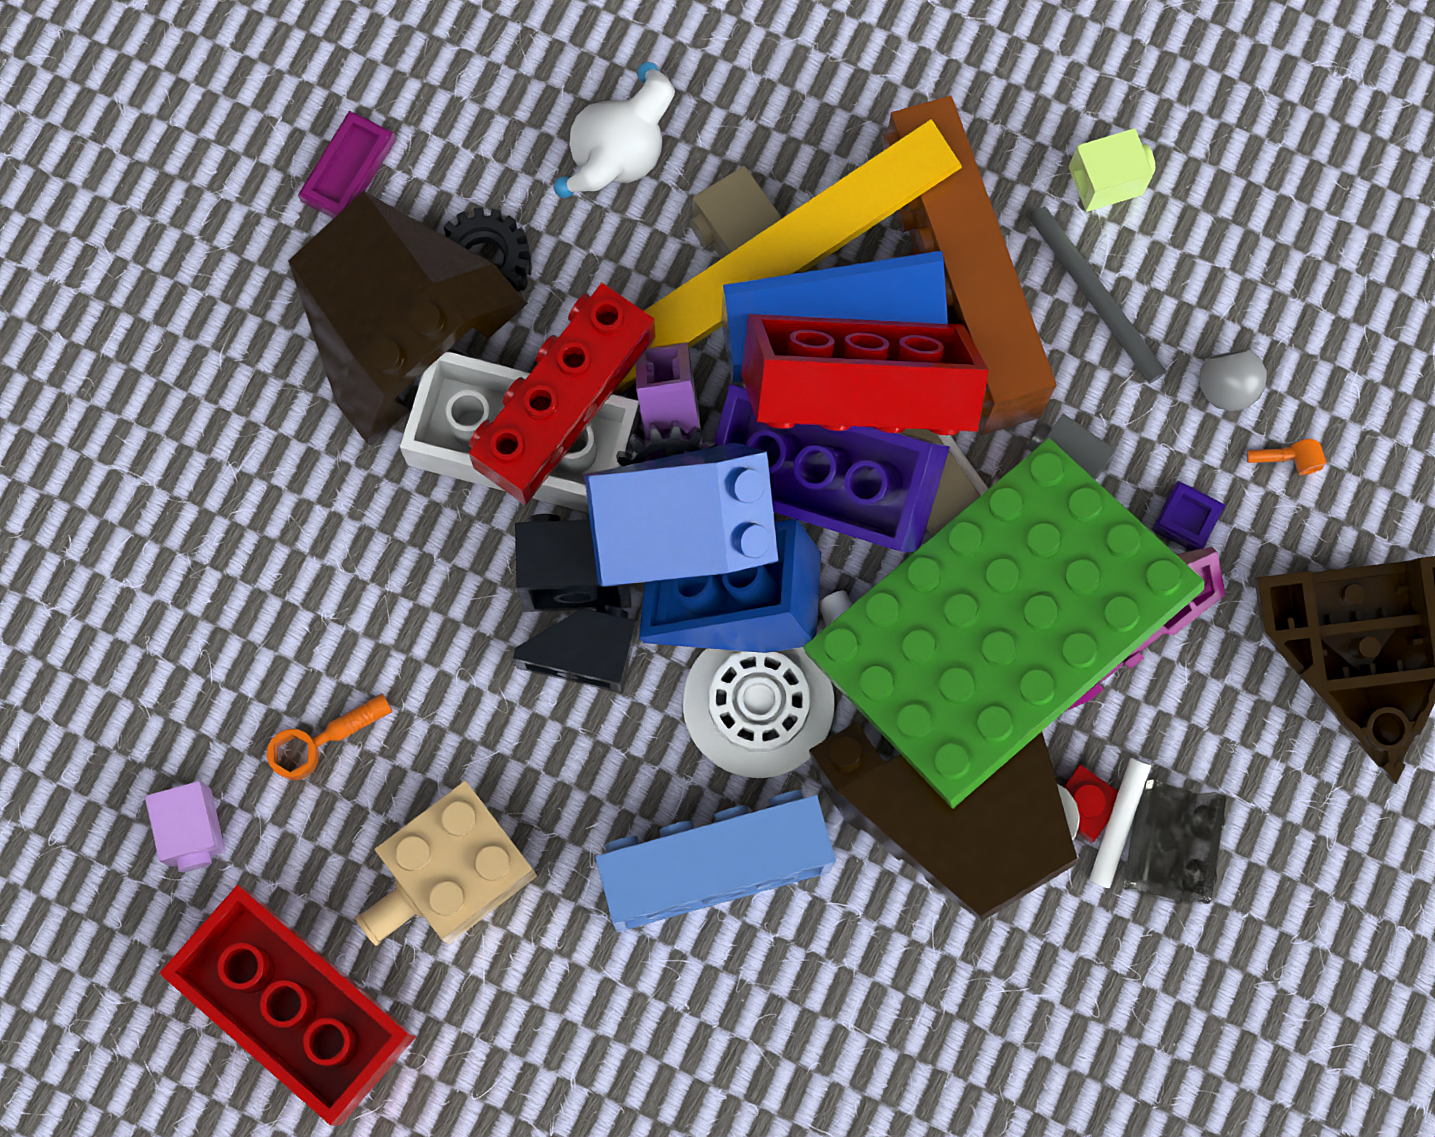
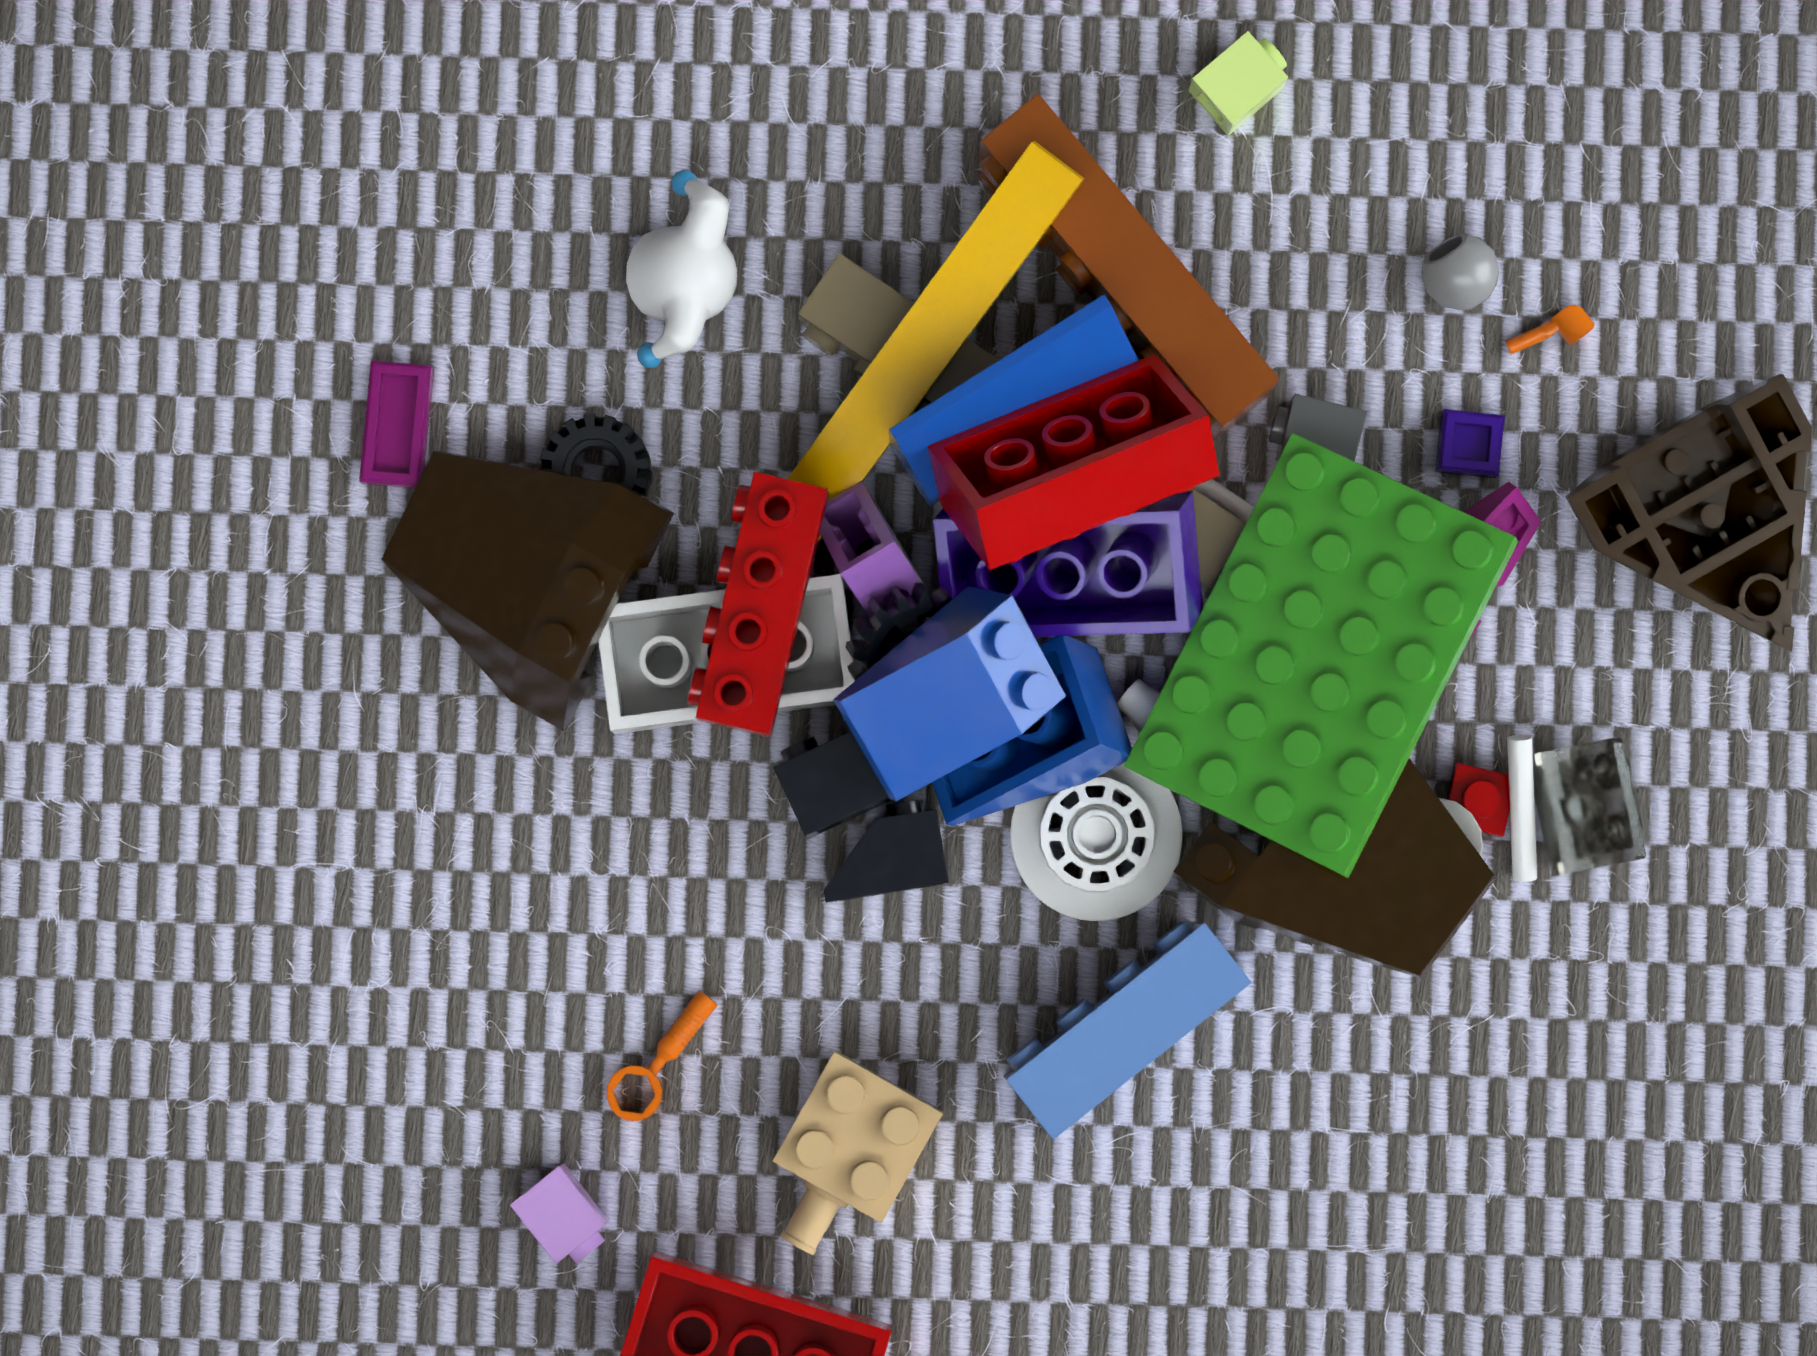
camera: 20 degrees left, 10 degrees up
(1097, 295) = (1277, 230): dark grey bar -> none

